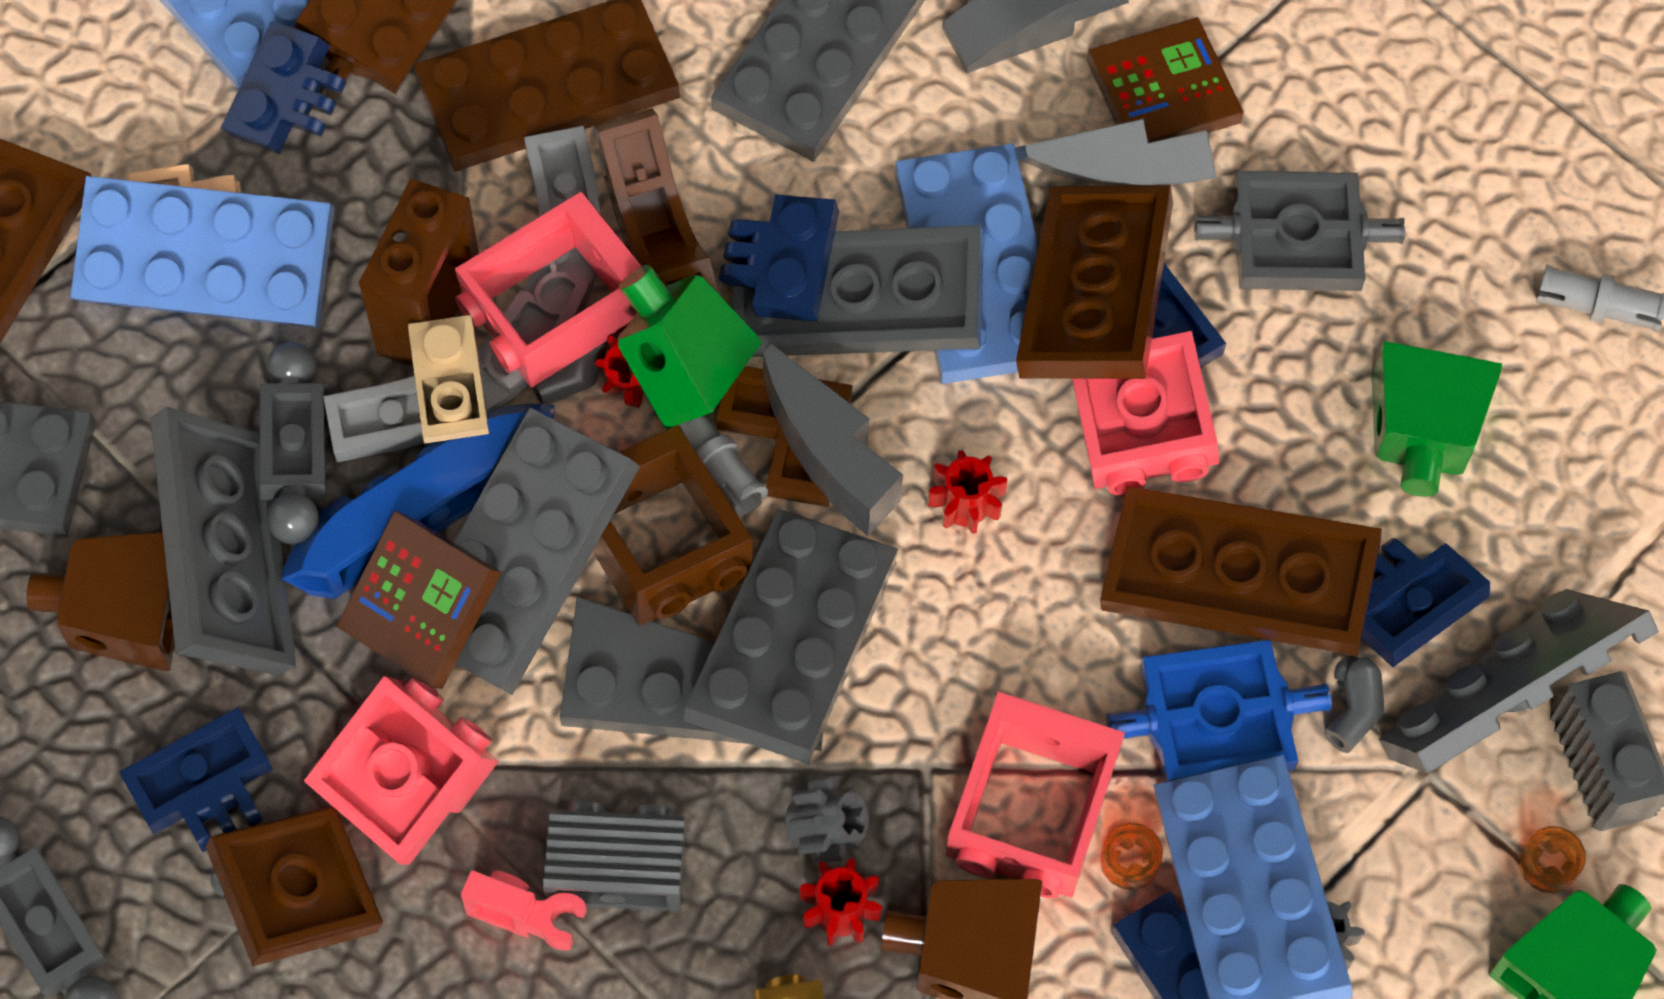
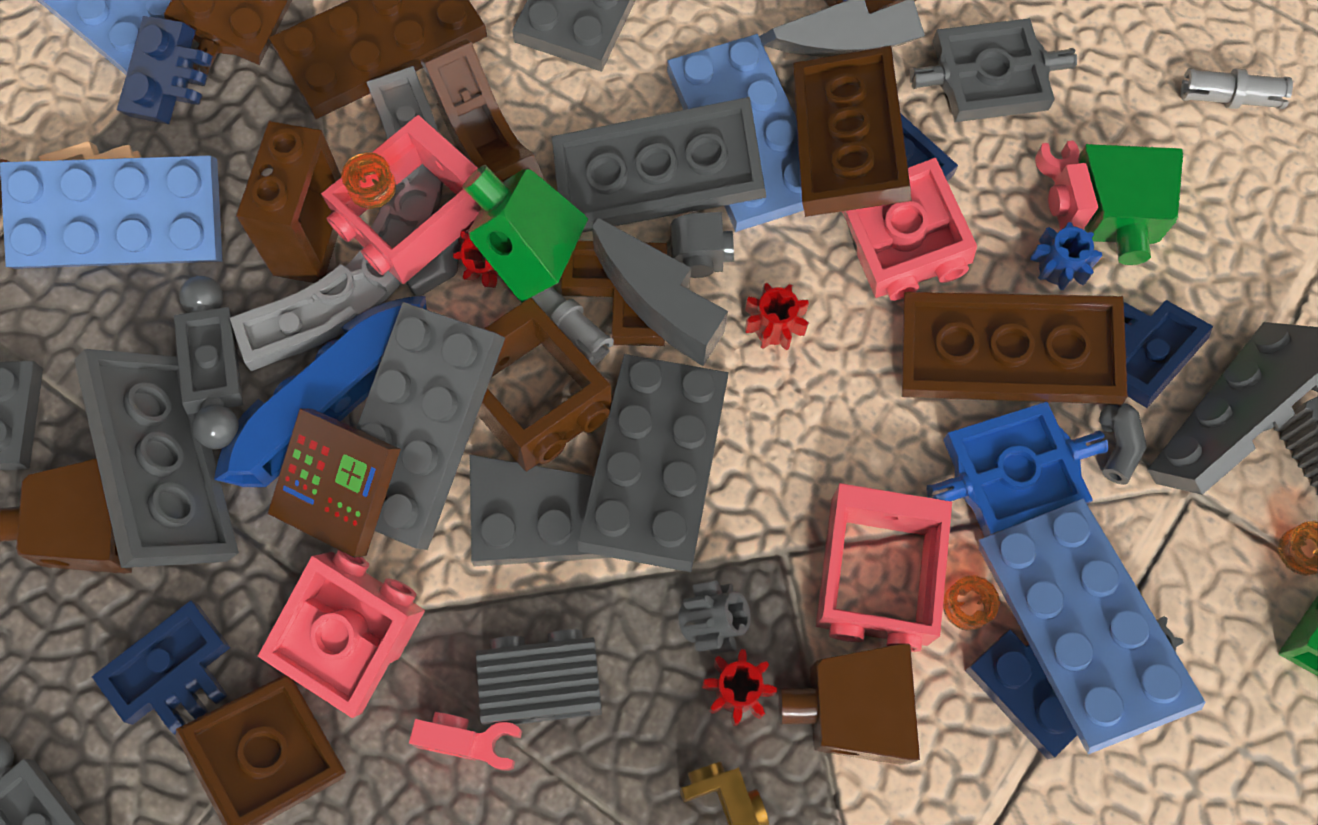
camera: 10 degrees left, 5 degrees up
(448, 379) = (330, 288): tan slope -> none
(512, 243) = (364, 165): none -> clear orange bush
(784, 256) = (593, 146): dark blue hinge -> none
(893, 392) = (701, 243): none -> dark grey plate
(1337, 455) = (1066, 255): none -> blue gear
(1359, 400) = (1072, 194): none -> coral plate

